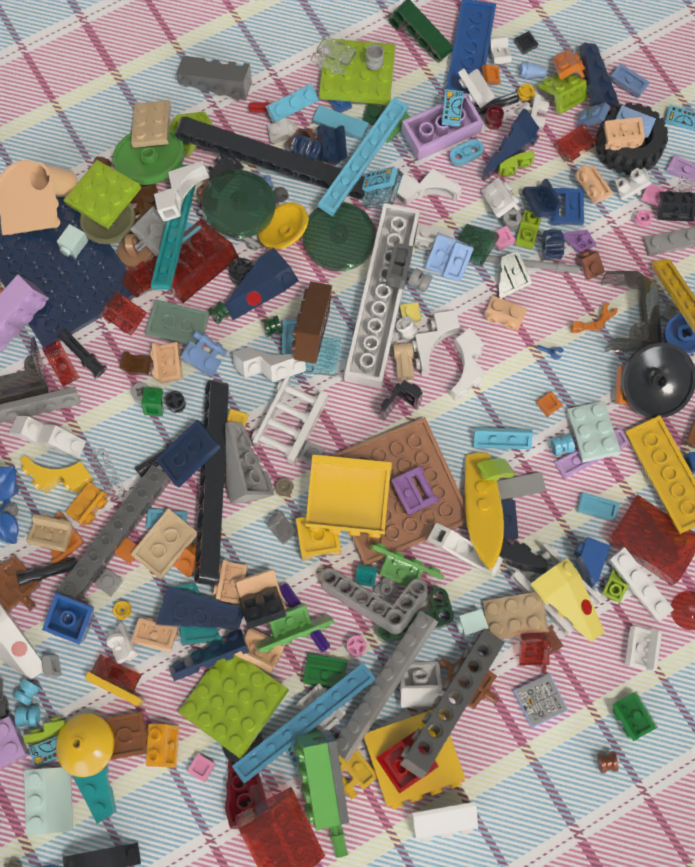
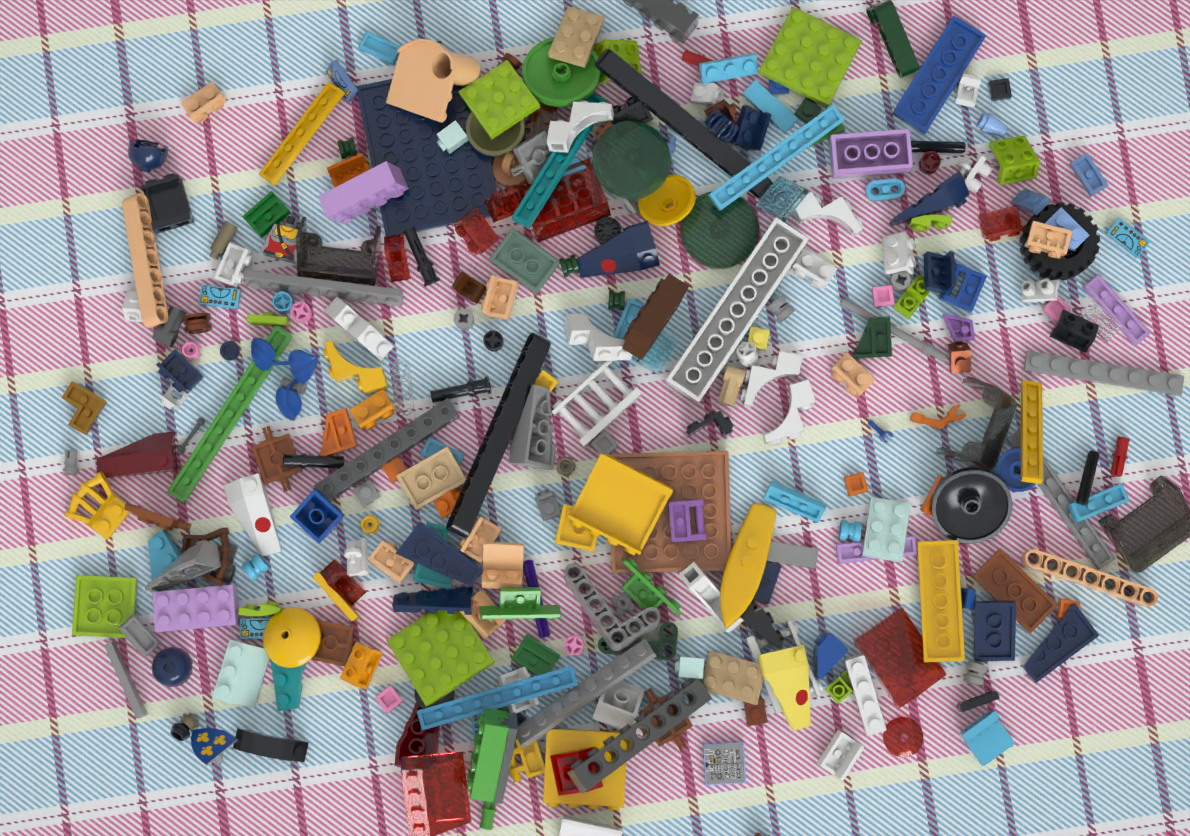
camera: 25 degrees right, 10 degrees up
(27, 716) = (249, 589): medium azure wheel -> none
(50, 532) = (328, 426): tan bracket -> none
(51, 666) = (286, 552): light grey plate -> none
(152, 401) = (471, 332): green bracket -> none
(188, 453) = (485, 401): dark blue plate -> none
(201, 359) = (533, 307): medium blue plate -> none
(262, 607) = (499, 577): black plate -> none
(281, 194) = (678, 162): dark grey hinge -> none
(336, 51) = (794, 29): clear plate -> none
(366, 575) = (609, 583): teal plate -> none
(374, 57) = (834, 48): light grey wheel -> none
(379, 179) = (782, 190): medium azure tile -> none
(399, 266) = (762, 293): dark grey brick -> none
(449, 257) = (819, 297): light blue slope -> none
(452, 107) = (887, 141): medium azure tile -> none
(477, 86) = (923, 125): white bracket -> none
(481, 240) = (850, 293): clear green plate -> none
(491, 74) = (946, 113): orange tile -> none
(495, 469) = (774, 530): lime slope -> none
(526, 92) = (975, 146): yellow plate -> none
(534, 650) = (737, 716): clear red bracket -> none
(552, 244) = (929, 324): dark blue gear -> none
(568, 63) = (1030, 134): orange bracket -> none
(593, 183) = (1000, 274): light nougat bracket -> none
(598, 78) = (1055, 166): dark blue wing -> none
(598, 507) = (858, 604): medium azure tile -> none
(634, 716) = (804, 813): green bracket -> none
(643, 214) = (1038, 326): bright pink plate -> none

